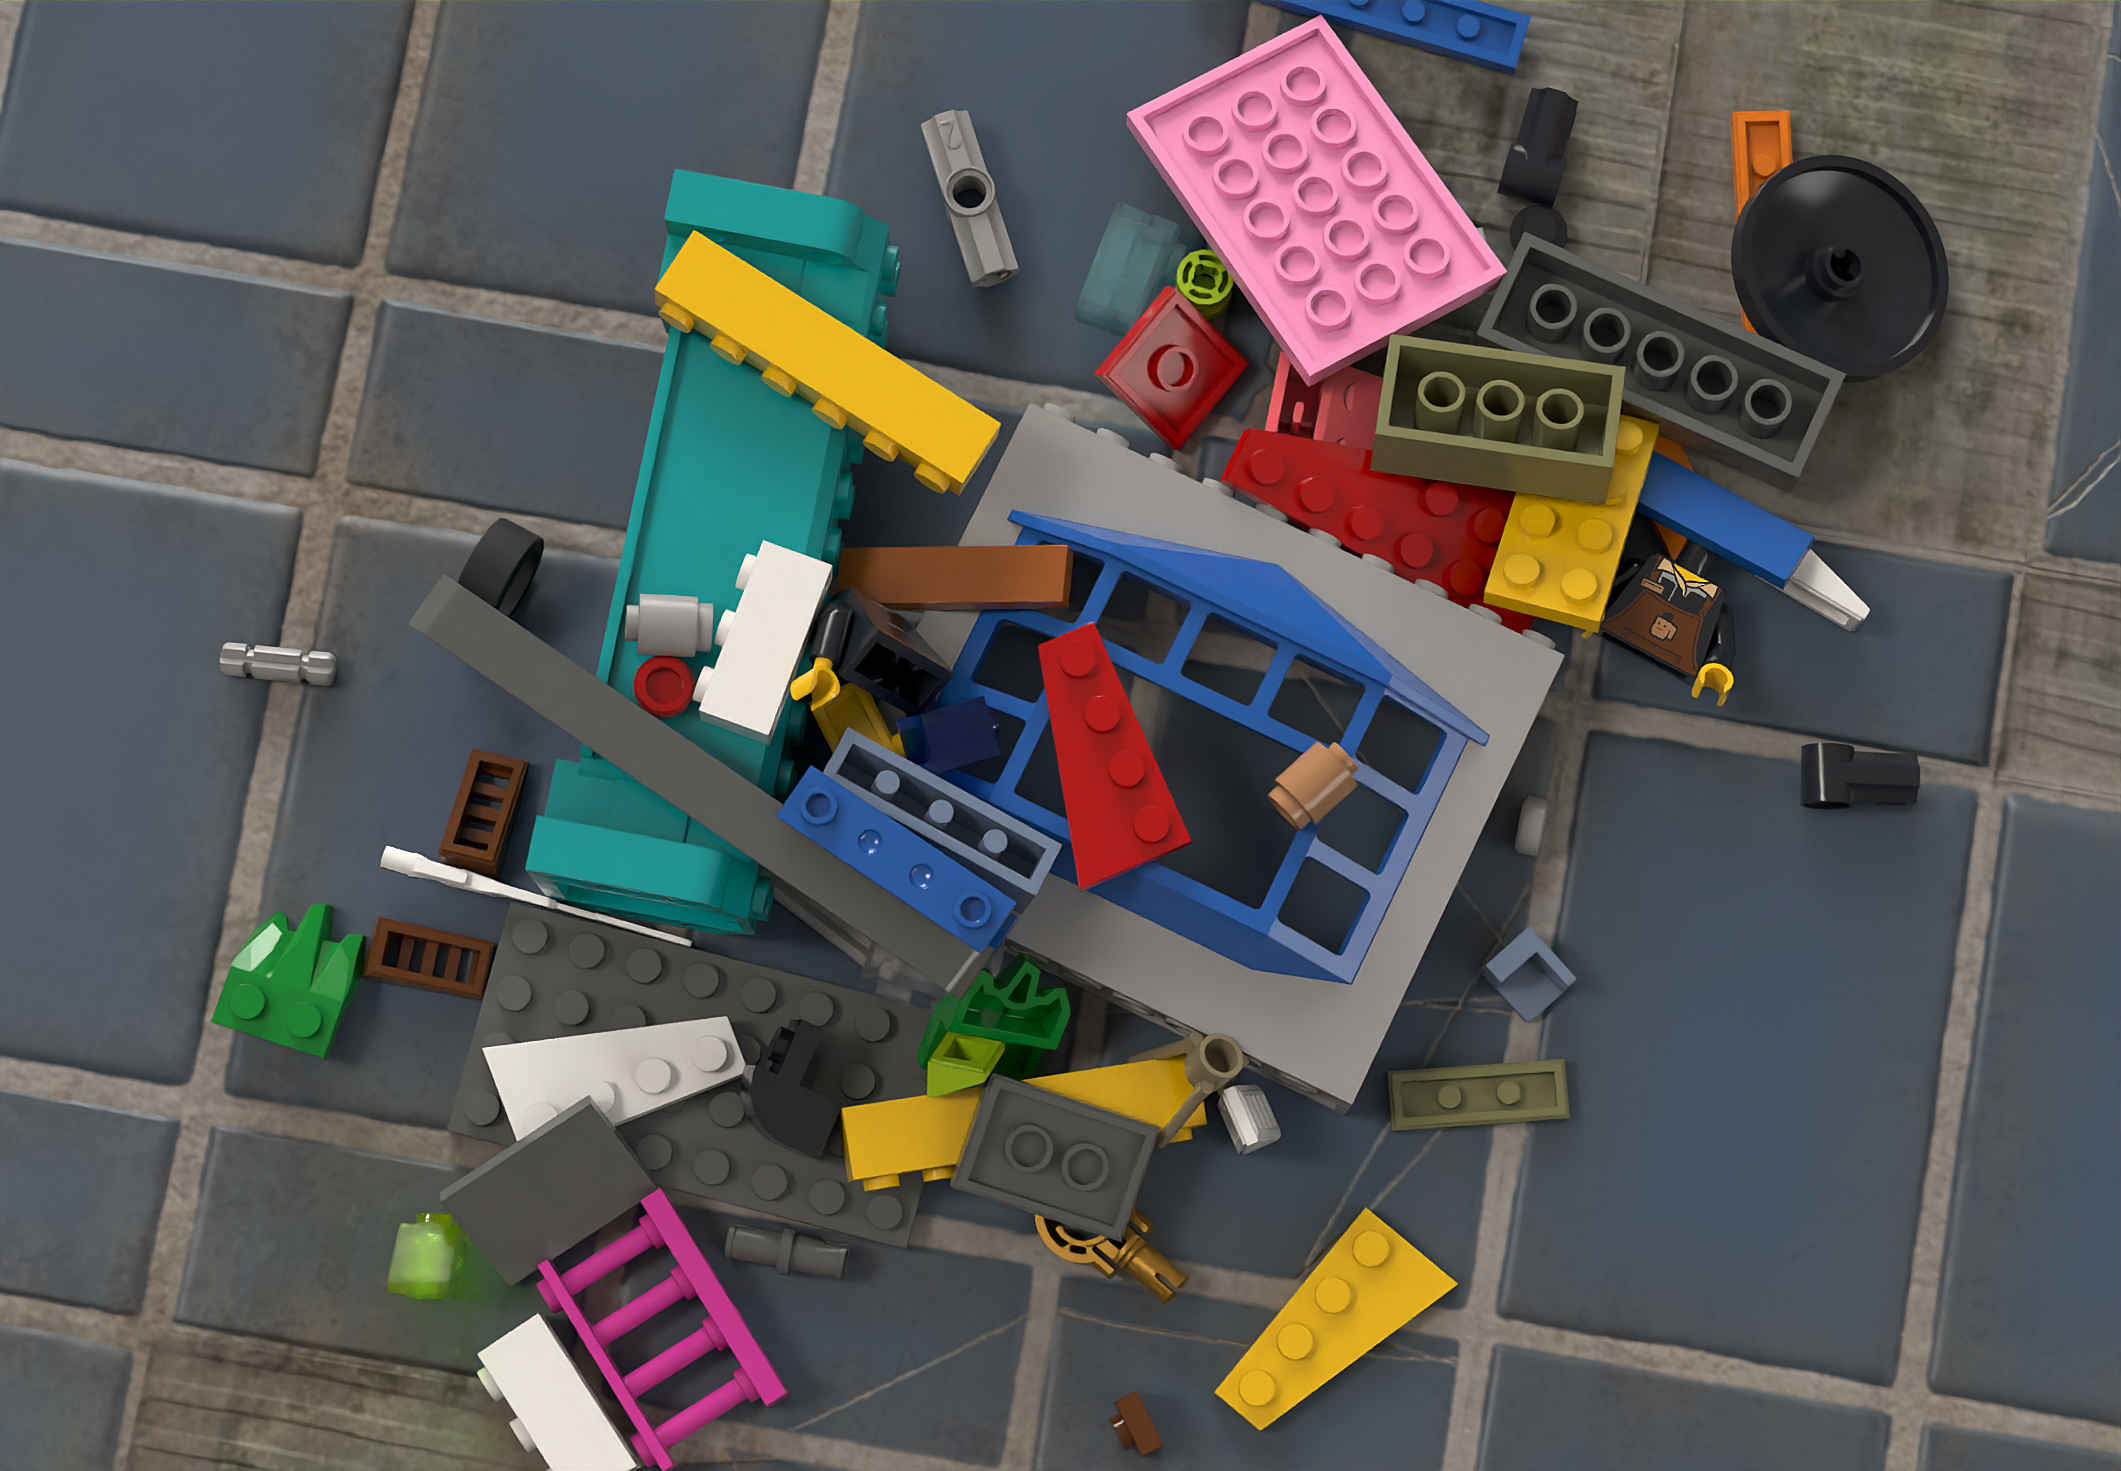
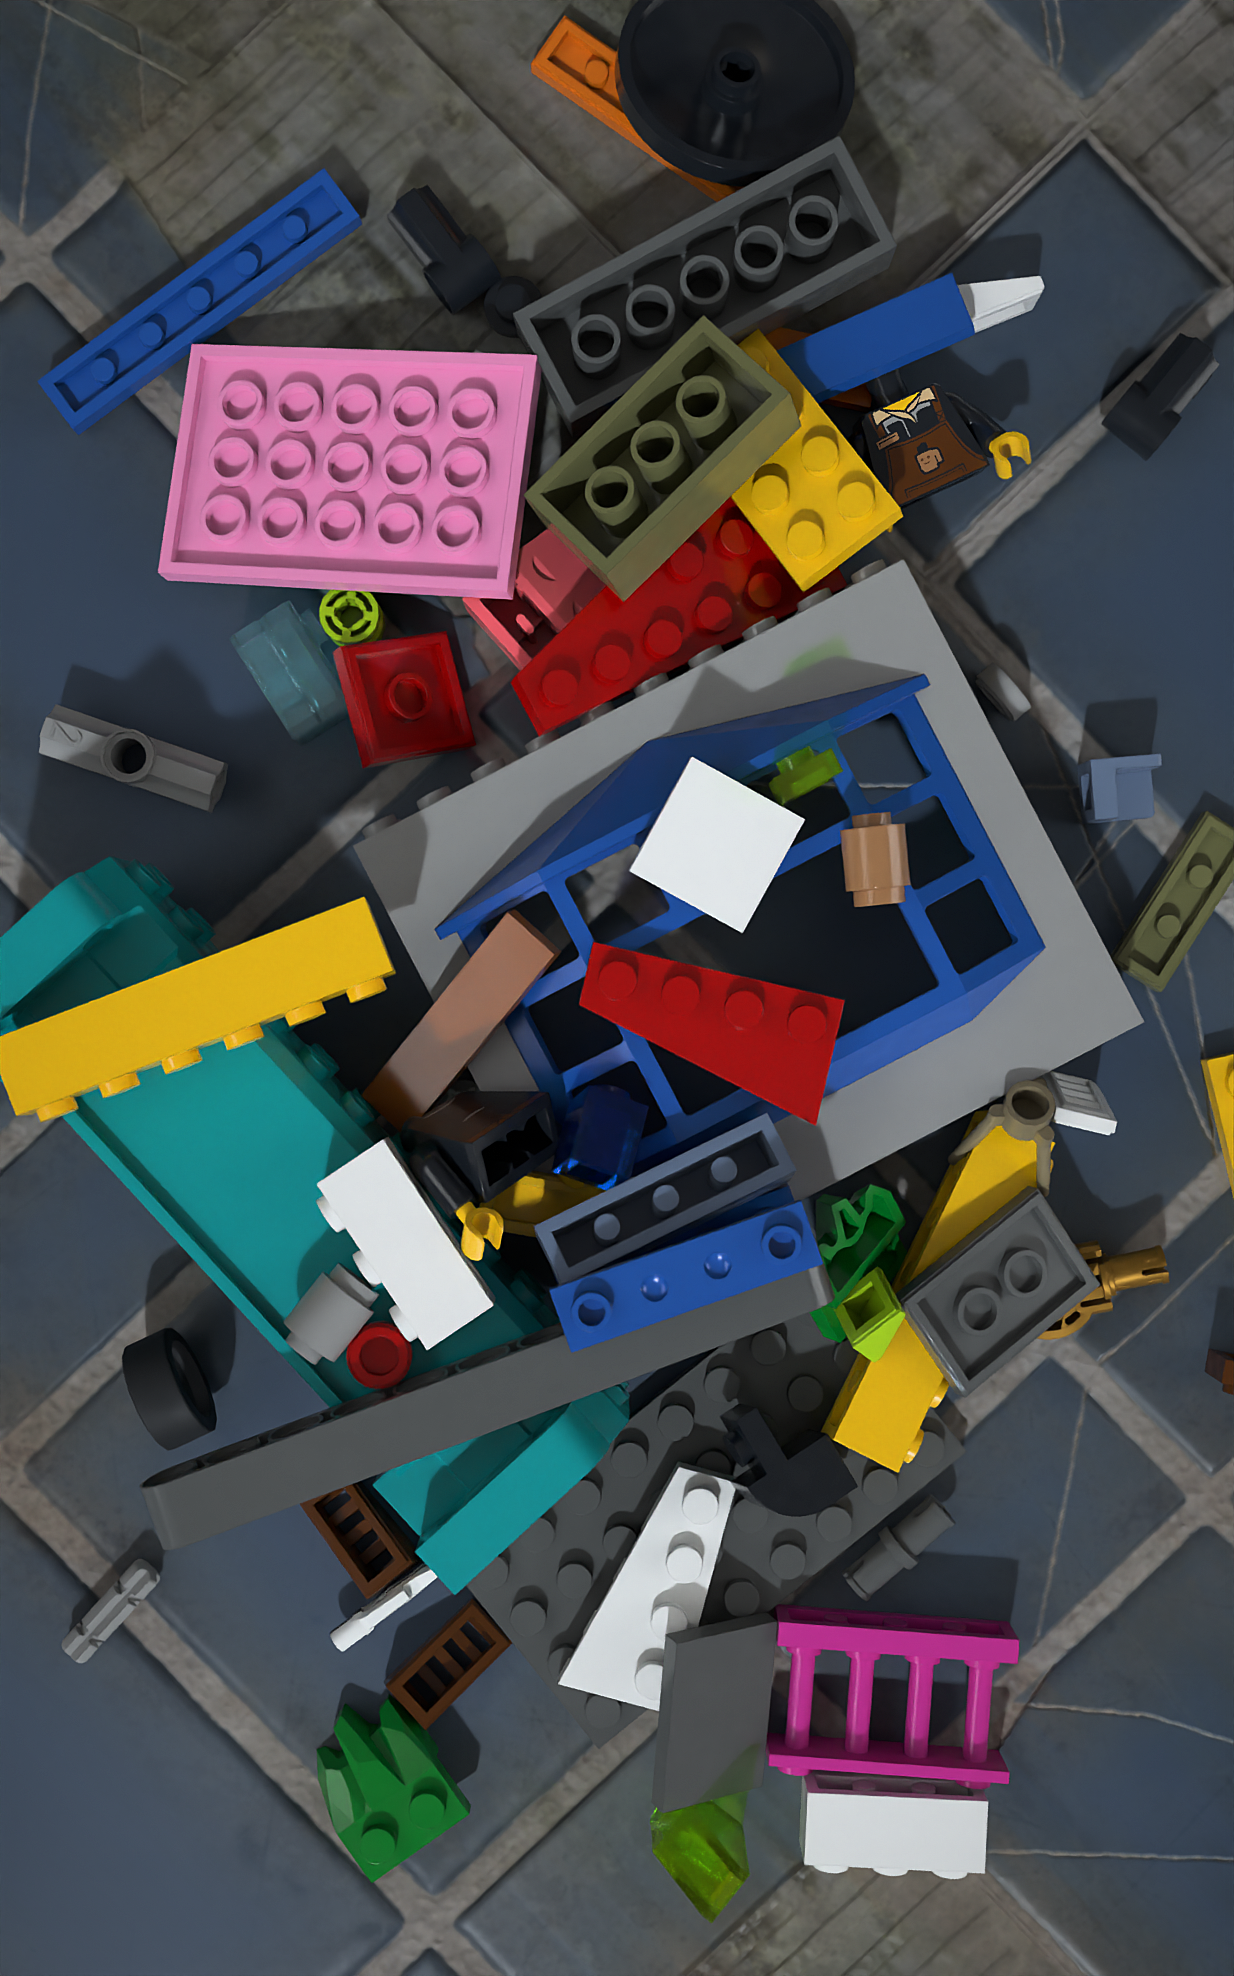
camera: 55 degrees left, 10 degrees up
(1235, 659) = (716, 844): none -> white tile
(1336, 684) = (803, 773): none -> clear neon green plate

